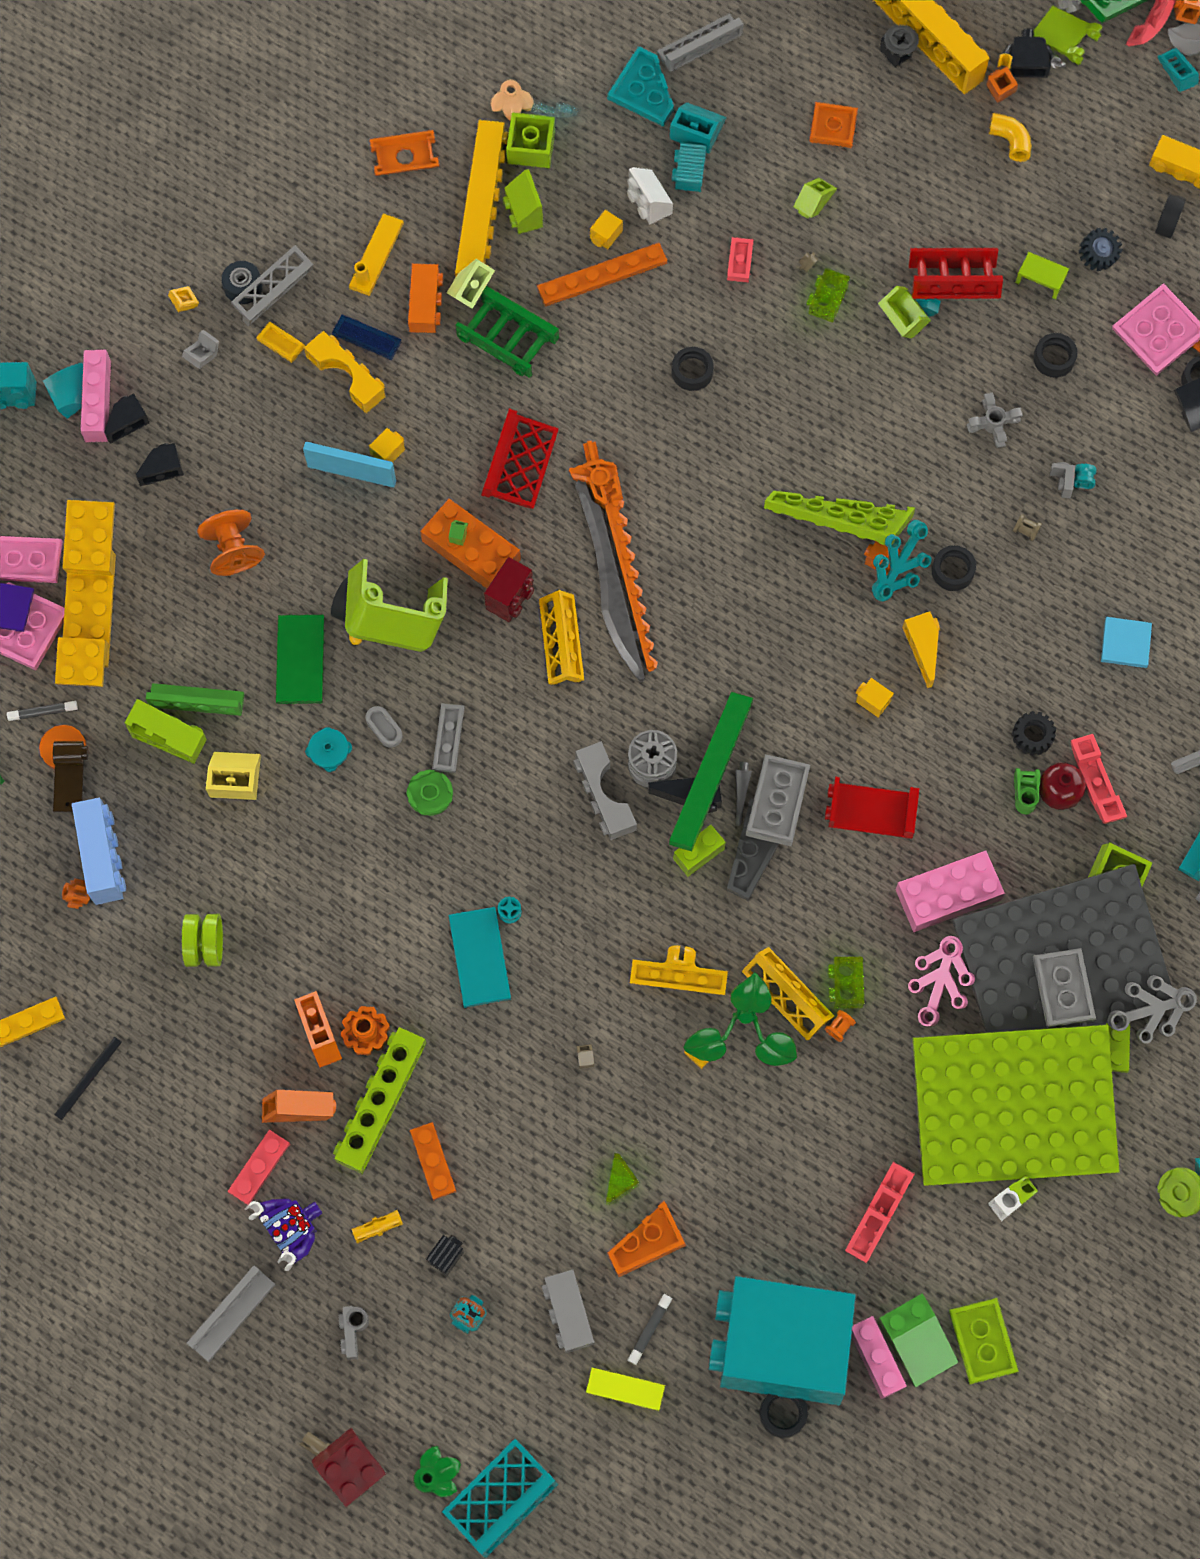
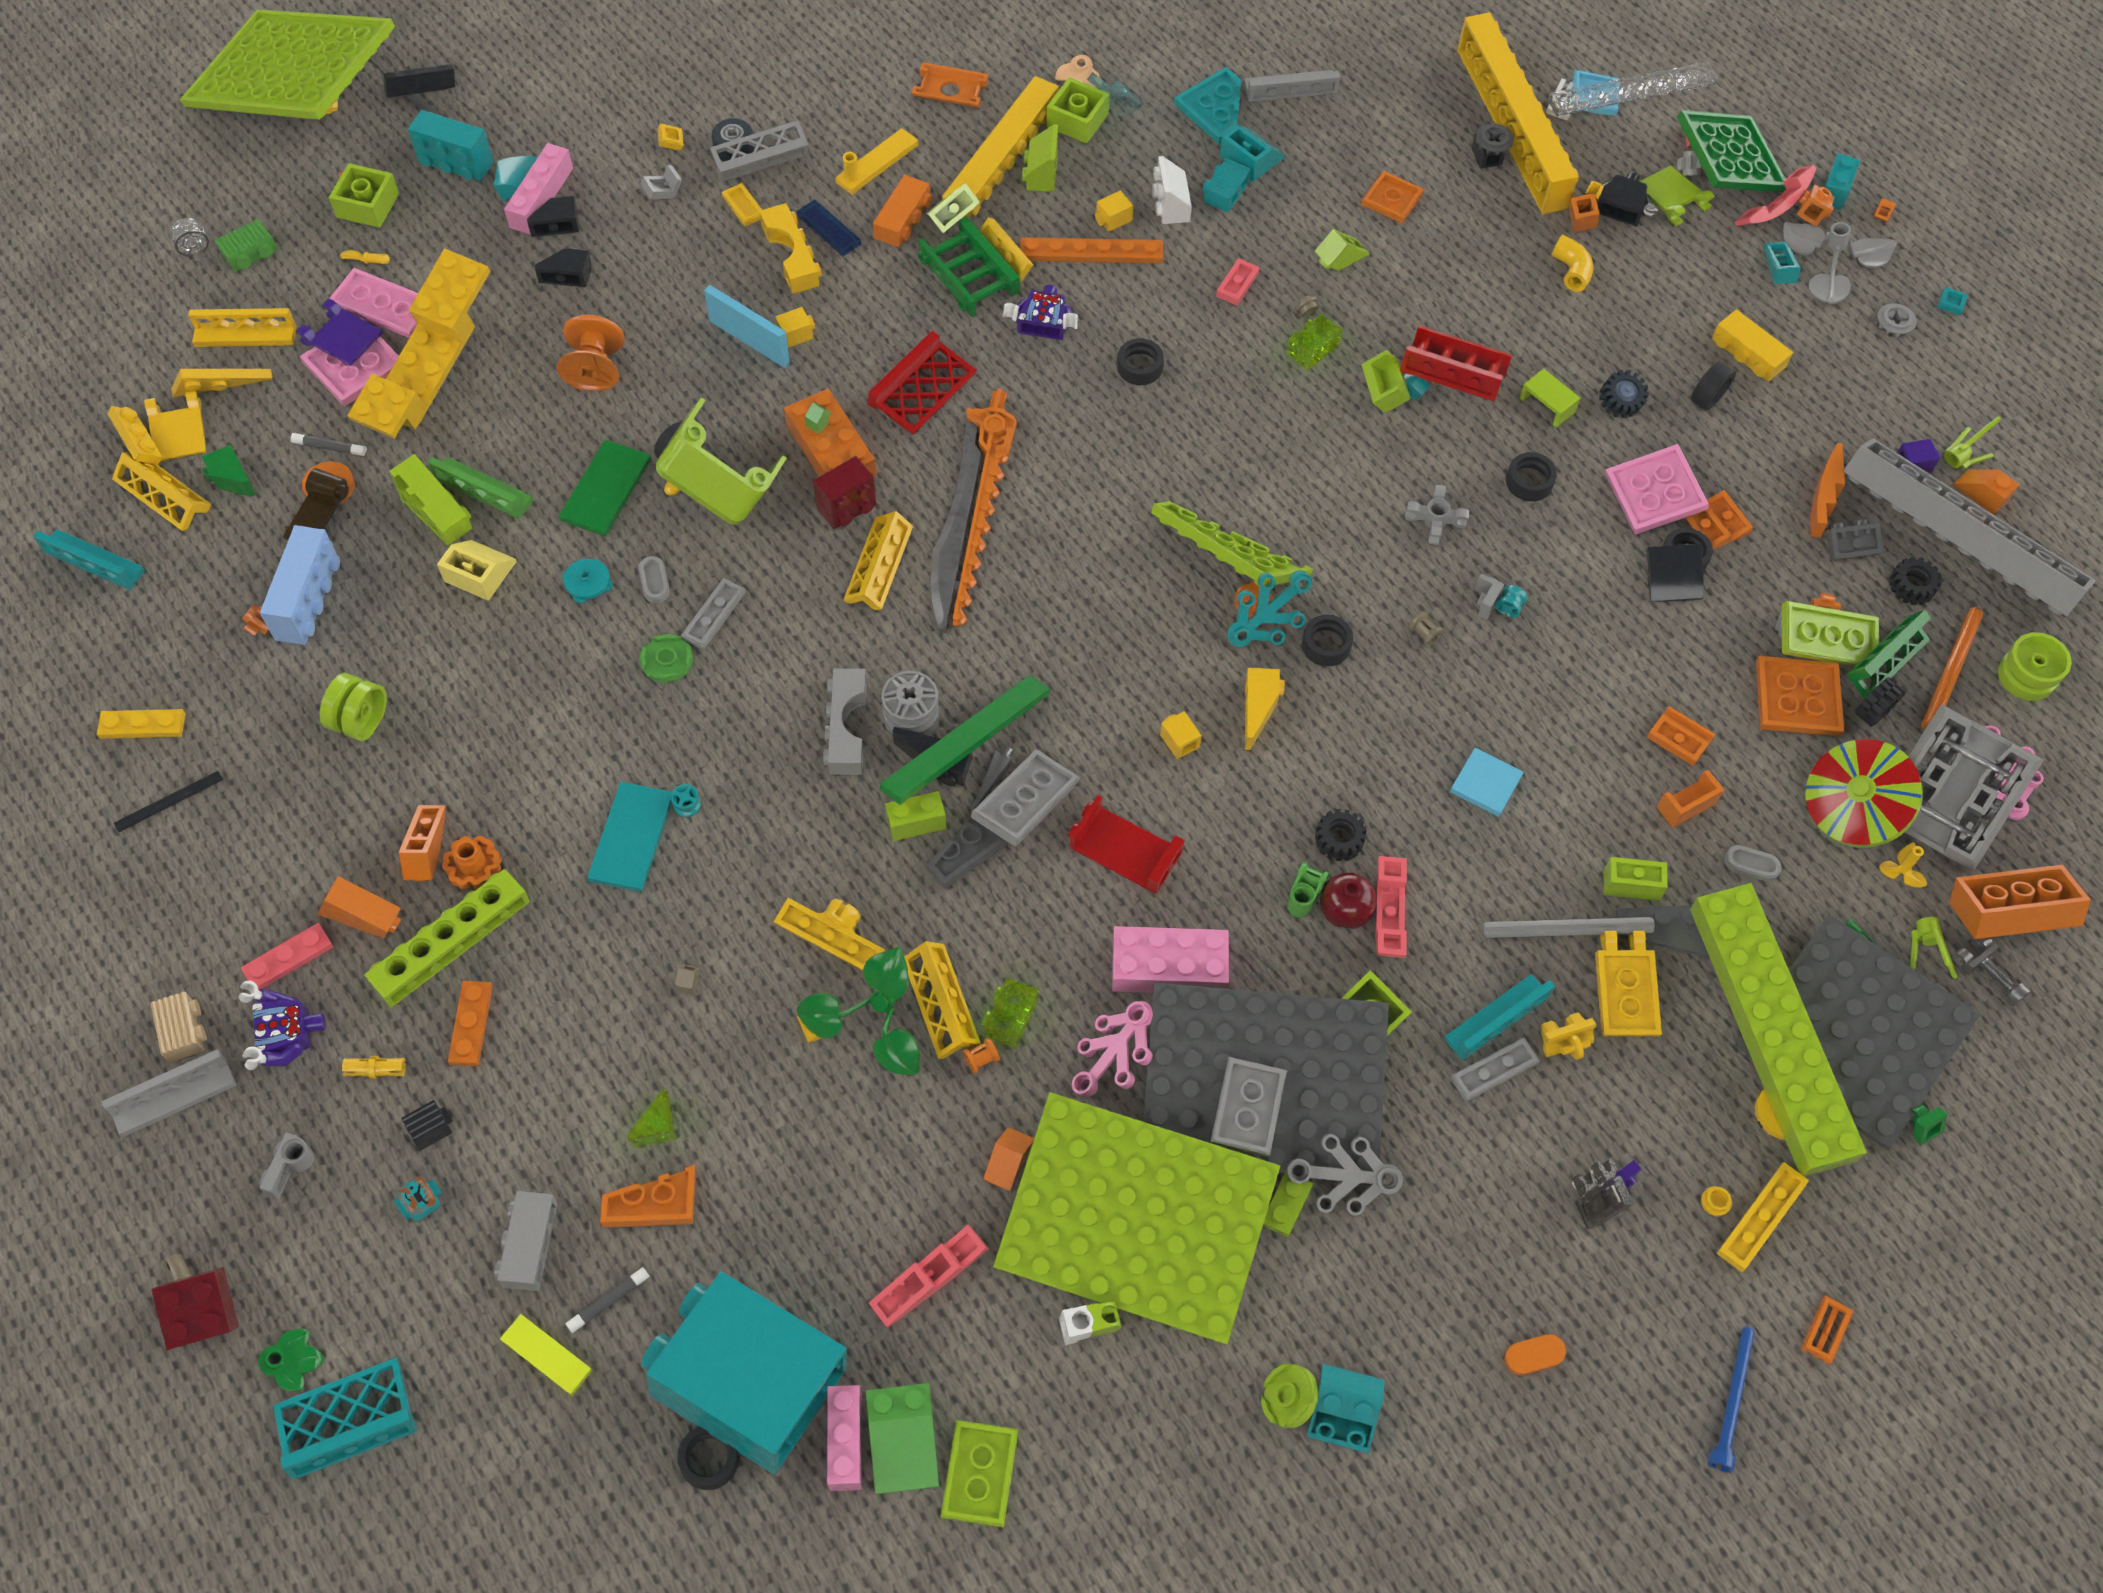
camera: 20 degrees right, 10 degrees down
(206, 1259) = (178, 1026): none -> tan brick
(530, 301) = (1006, 247): none -> yellow plate
(593, 354) = (1042, 314): none -> torso
(897, 1097) = (1008, 1158): none -> orange slope

